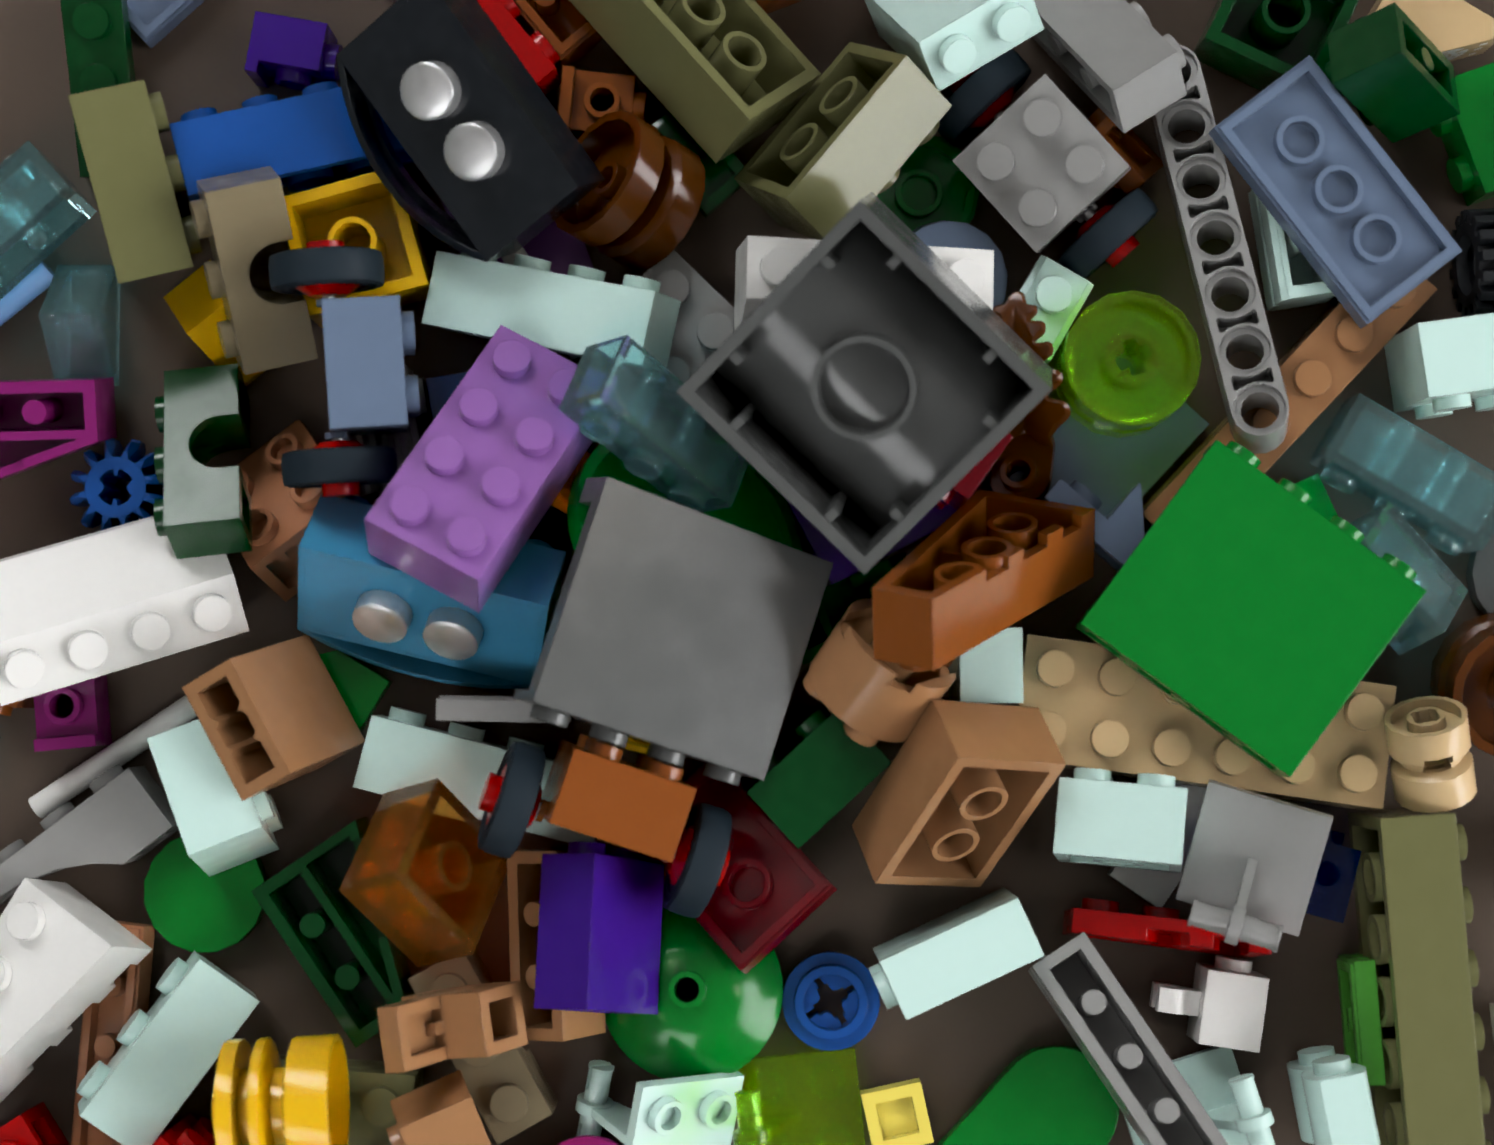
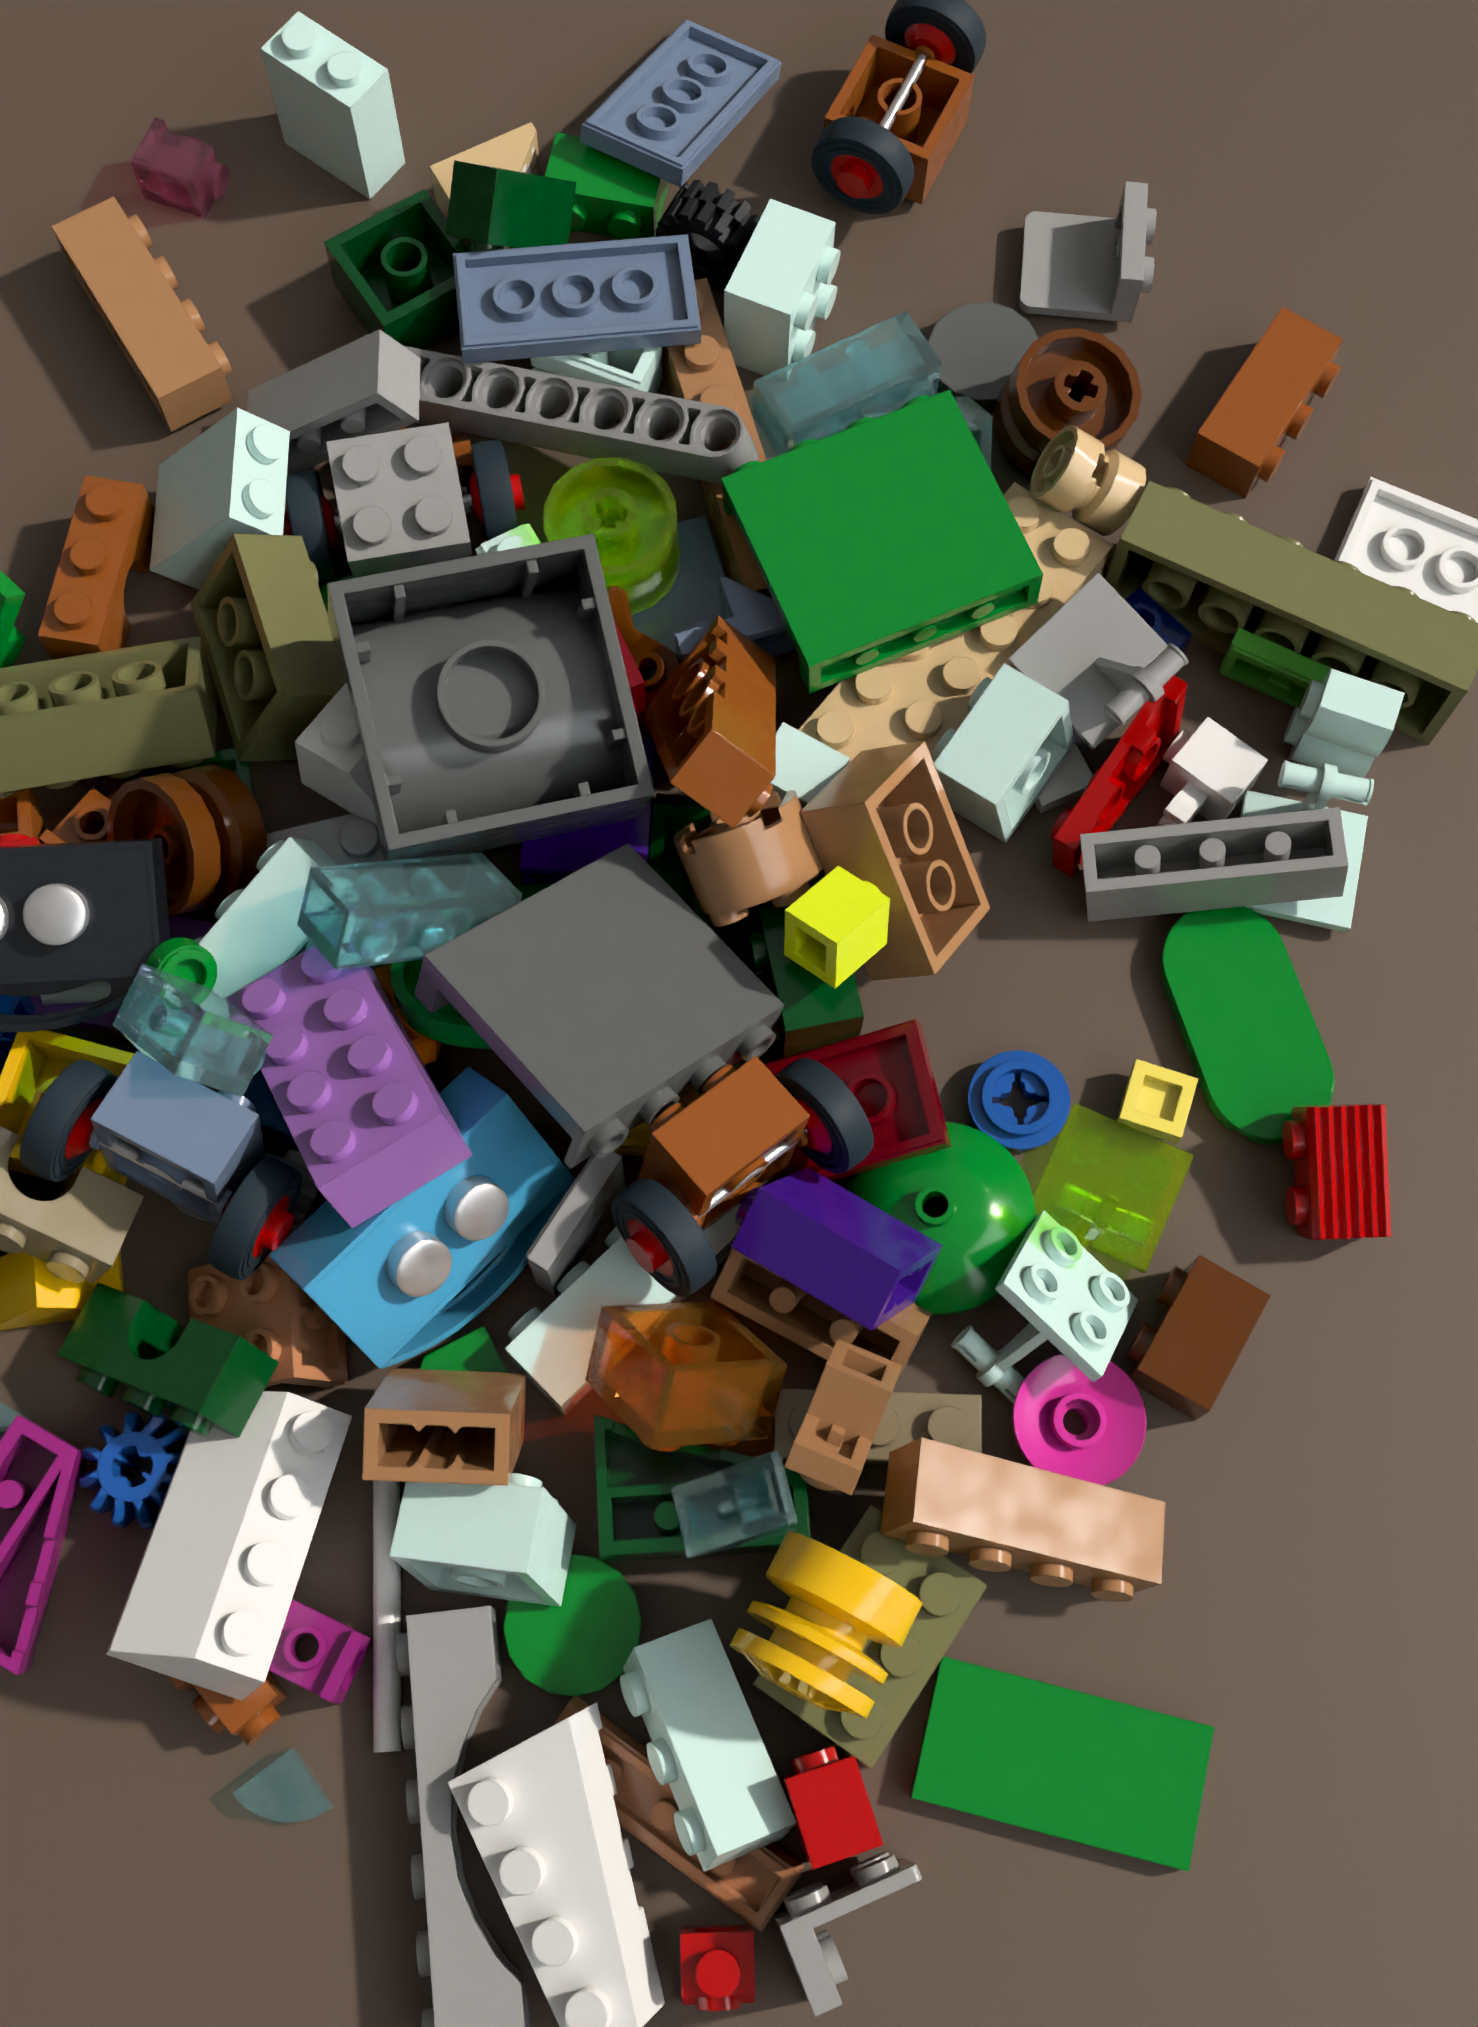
camera: 60 degrees left, 15 degrees down
(341, 979) = (735, 1506): none -> clear light blue slope
(443, 326) = (192, 1031): none -> clear light blue brick
(497, 275) = (185, 959): none -> green tile
(850, 789) = (836, 926): none -> neon yellow brick
(955, 953) = (1037, 955): light aqua brick -> none

